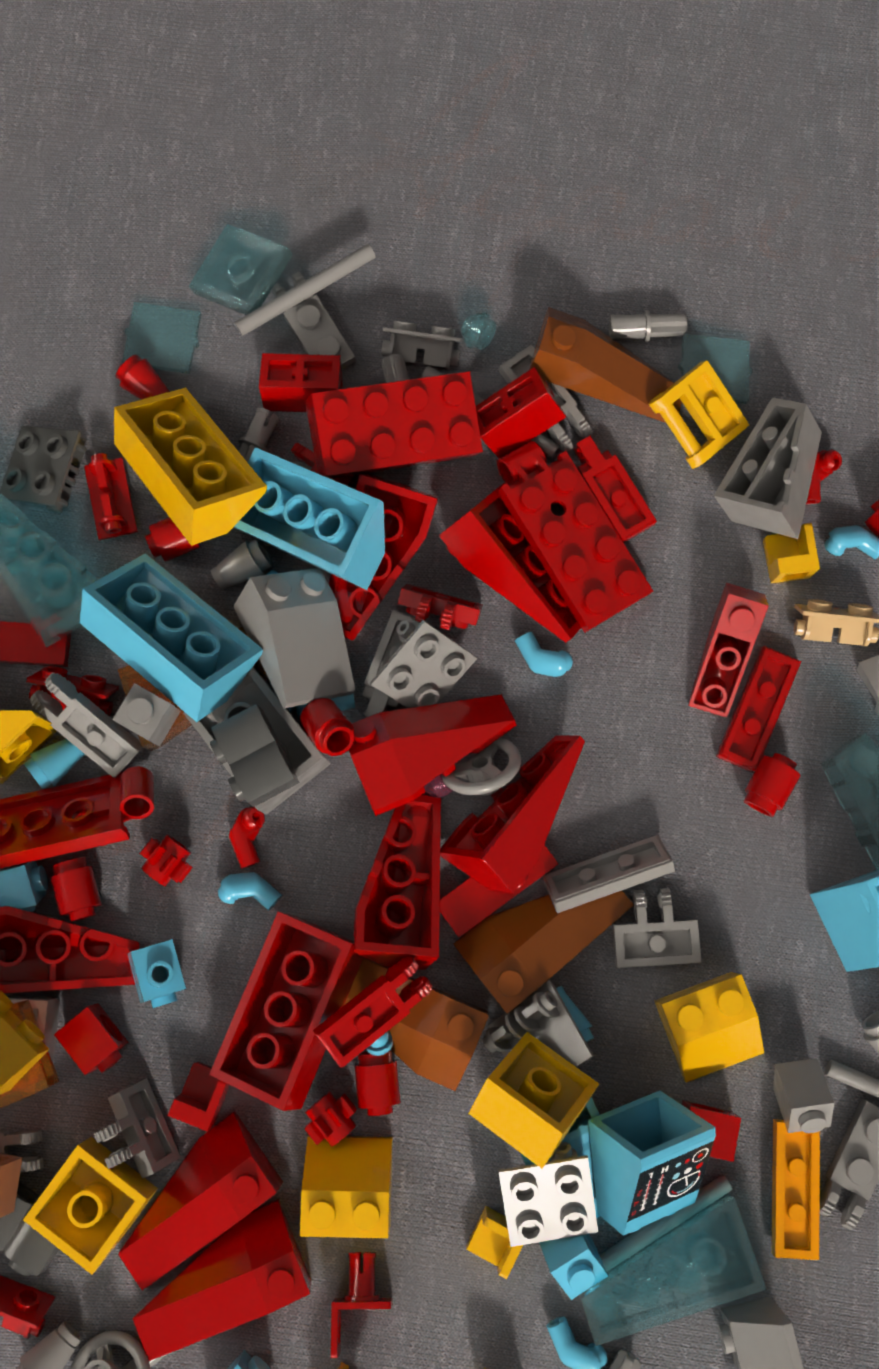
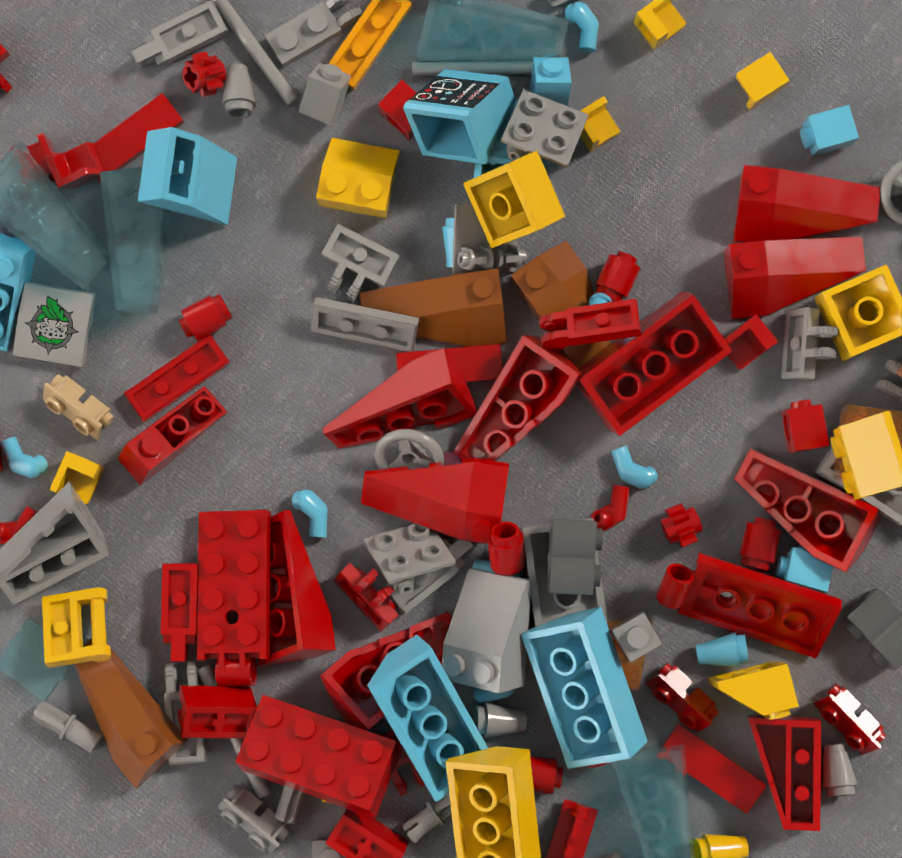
camera: 155 degrees left, 5 degrees up
(86, 725) = (685, 661): light grey hinge -> none
(157, 973) = (732, 446): medium azure brick -> none
(330, 1119) = (664, 272): red gear -> none
(347, 1188) = (679, 220): yellow slope -> none
(360, 1295) = (710, 145): red bracket -> none
(478, 330) = (202, 803): clear light blue plate -> none

